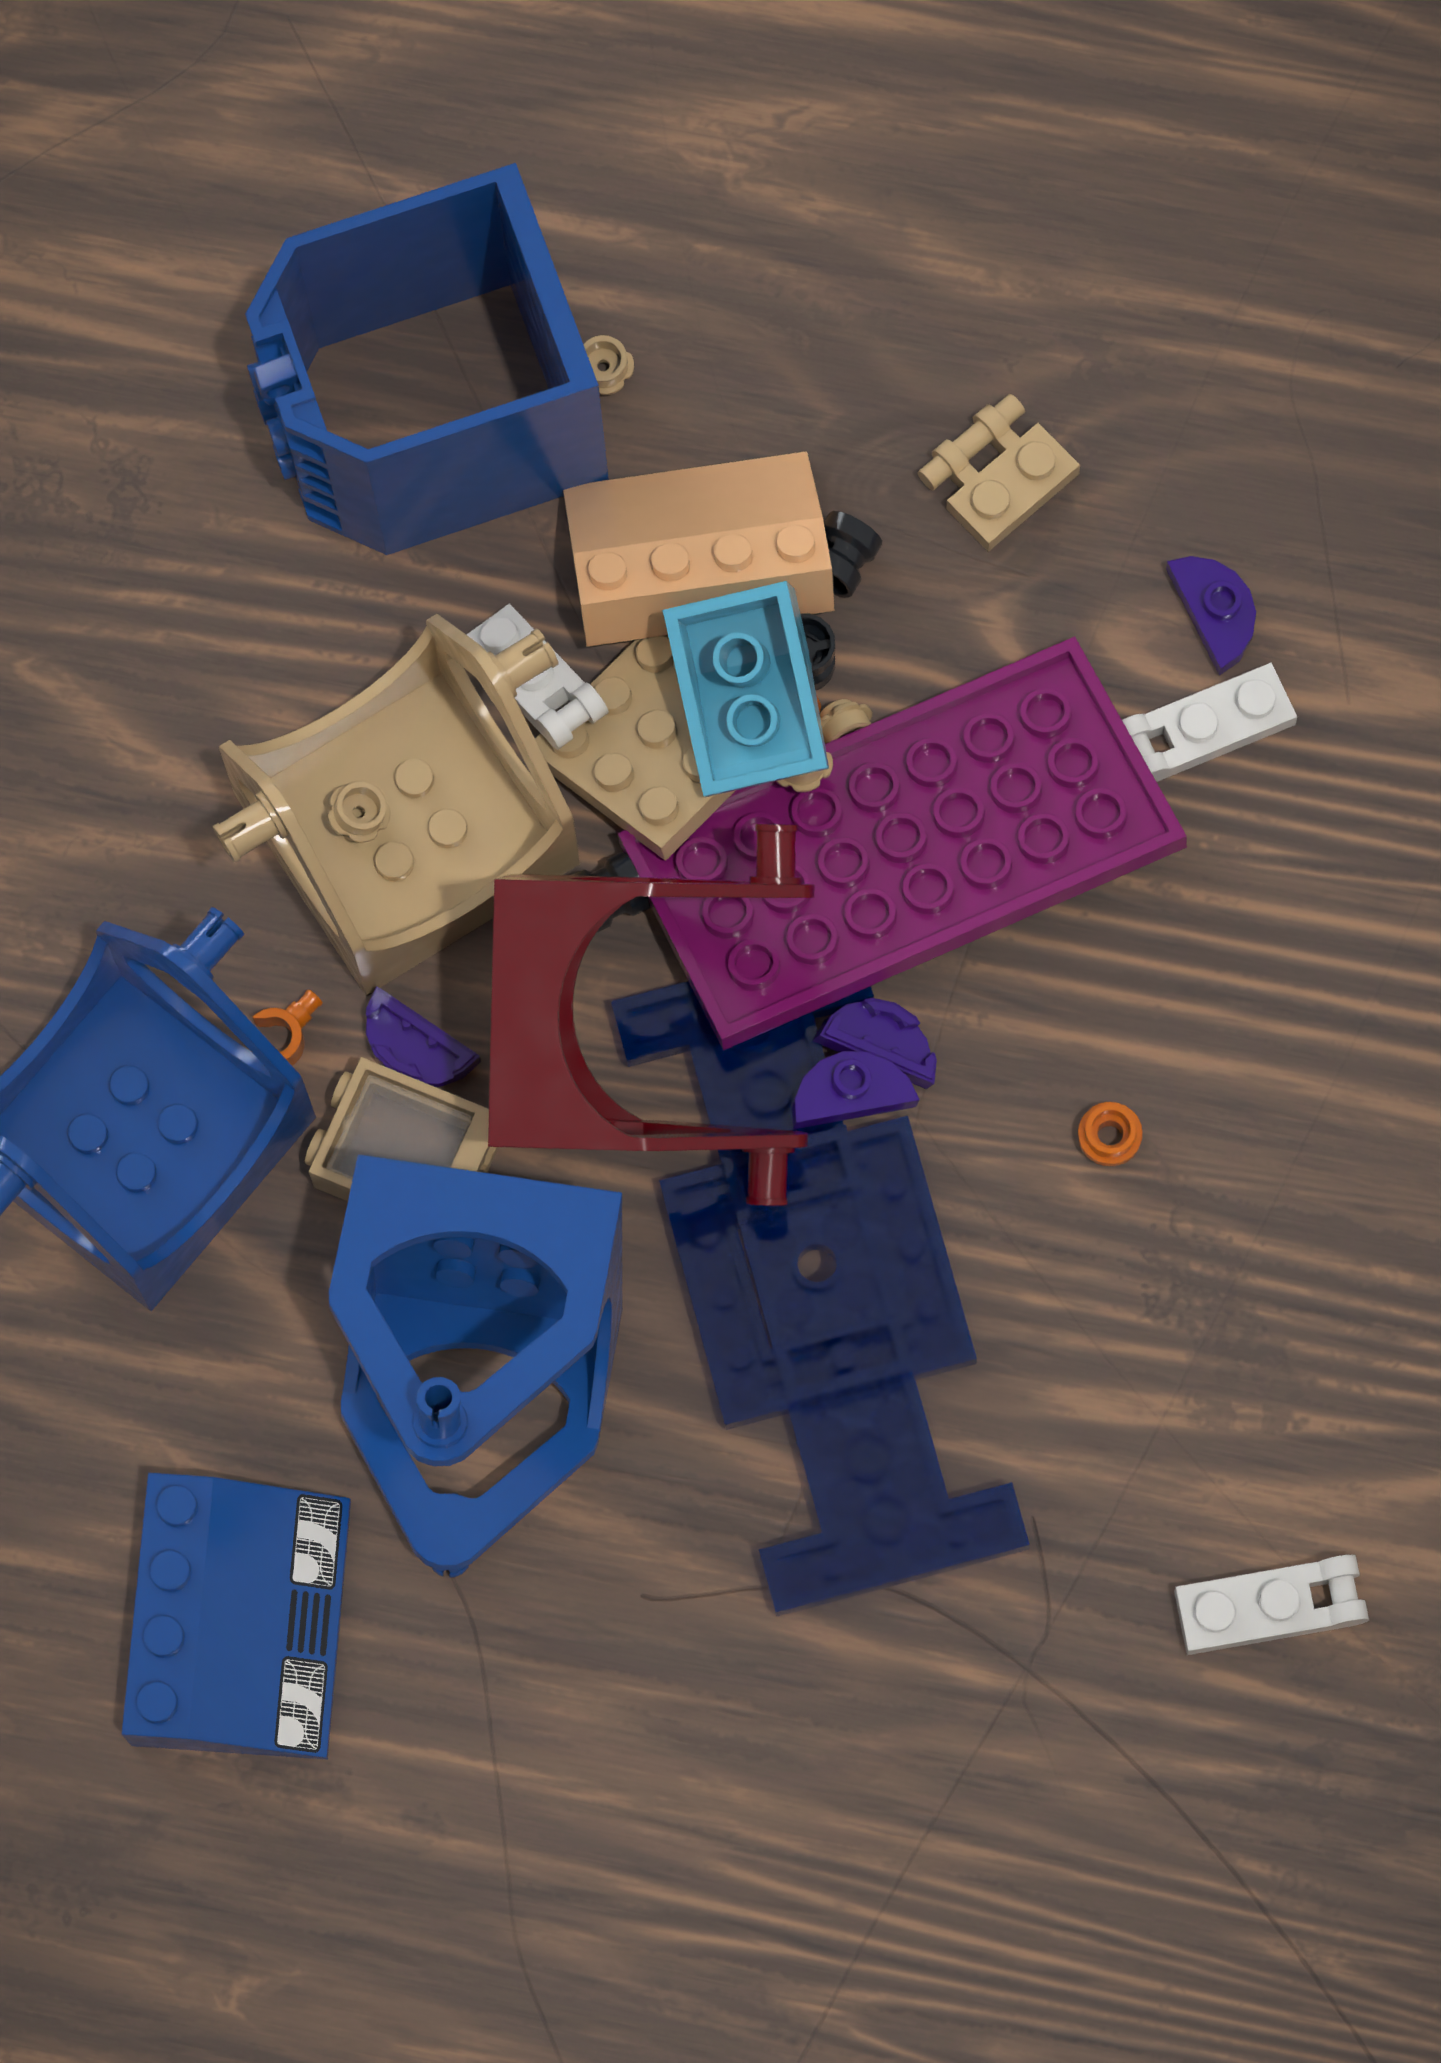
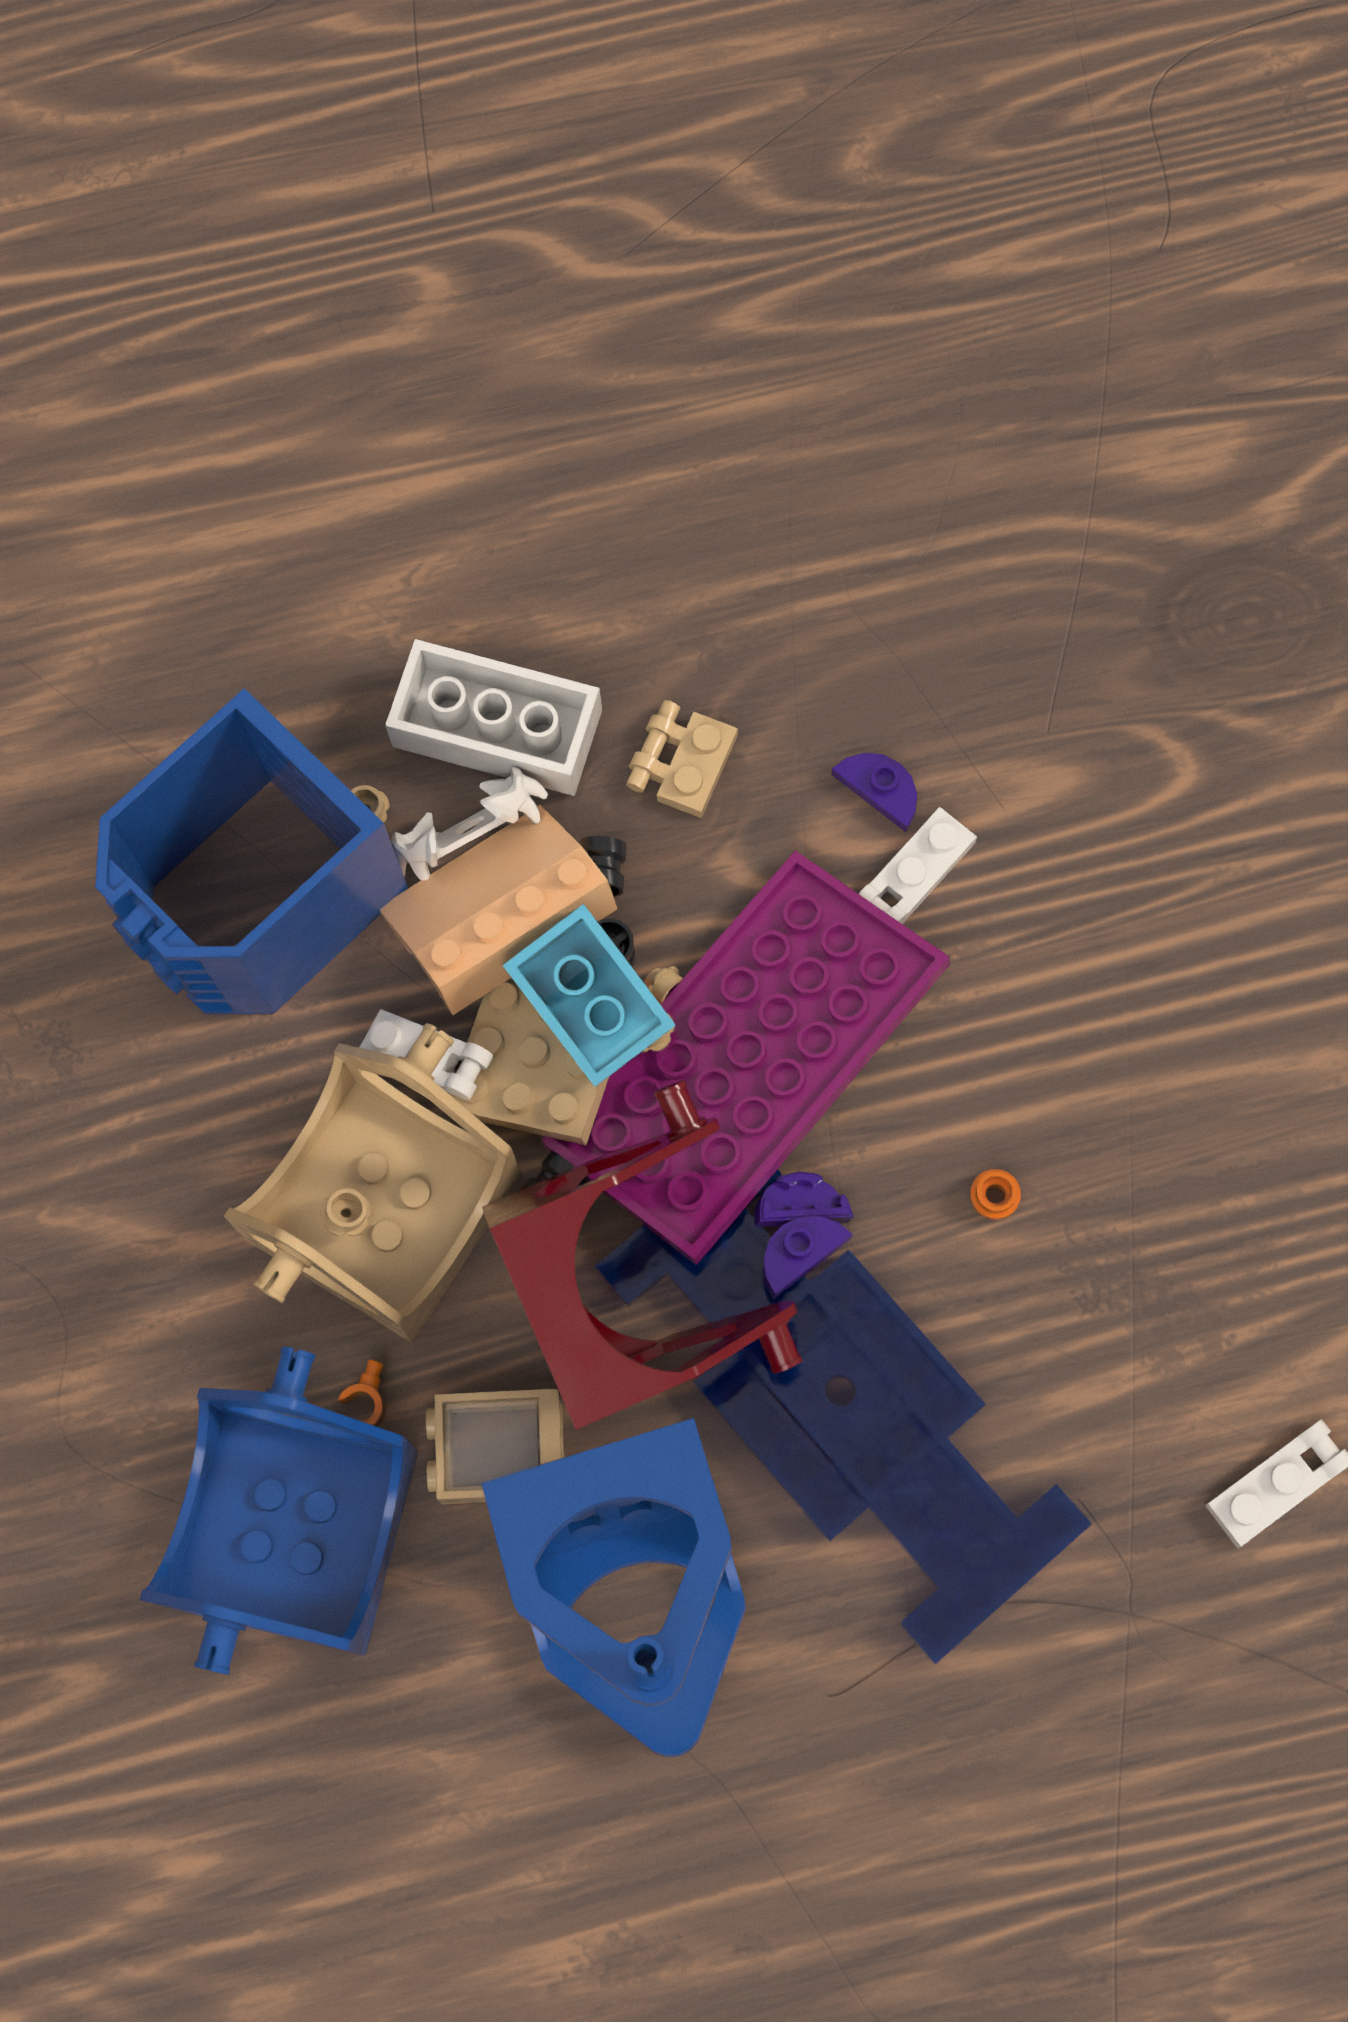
camera: 25 degrees left, 0 degrees up
(236, 1618) = (541, 1864): blue slope -> none
(413, 1044) = (466, 1365): dark purple plate -> none
(650, 439) = (506, 797): none -> white piece
(800, 325) = (494, 716): none -> white brick

